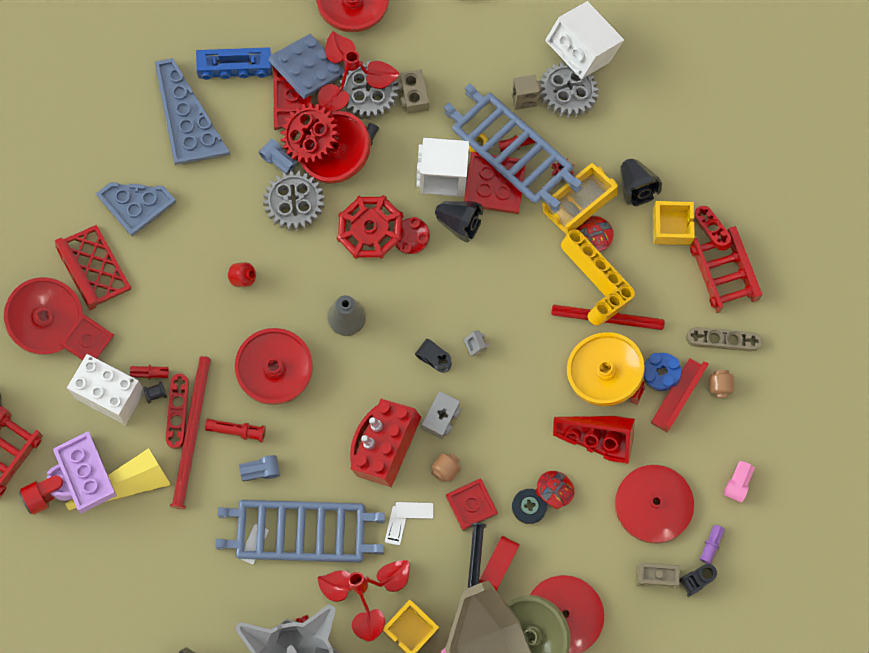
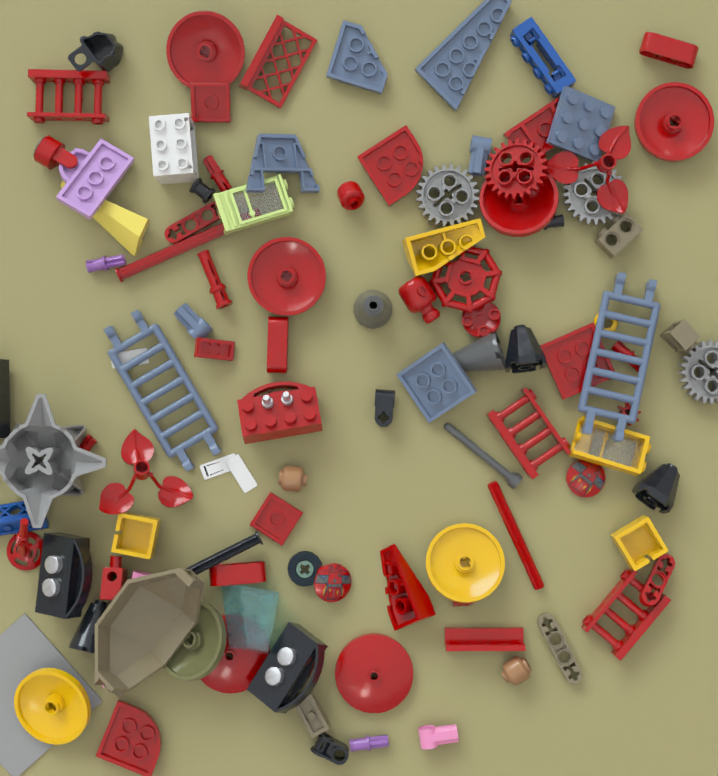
camera: 65 degrees right, 15 degrees up
(160, 511) = (105, 263): none -> medium lavender axle
(170, 309) = (279, 155): none -> sand blue wing
(195, 355) = (244, 210): none -> yellowish green door
(240, 227) = (394, 165): none -> red plate
(294, 464) = (214, 349): none -> red plate
(325, 410) = (277, 344): none -> red beam
(330, 234) = (437, 247): none -> yellow wedge
(362, 272) = (418, 297): none -> red piece
(441, 253) = (482, 355): none -> dark grey cone
(441, 300) = (436, 382): none -> sand blue plate
(441, 404) = (324, 442): light grey brick -> none
(442, 167) = (559, 307): white container -> none
(475, 343) = (418, 435): light grey tile -> none
(539, 271) = (520, 450): none -> red fence
(542, 573) = (249, 617): none -> clear light blue wedge
(559, 291) = (512, 478): none -> dark grey piece
(601, 273) = (549, 512): yellow beam -> none
(607, 567) = (288, 669): none -> black piece
(666, 381) = (489, 621): blue plate -> none

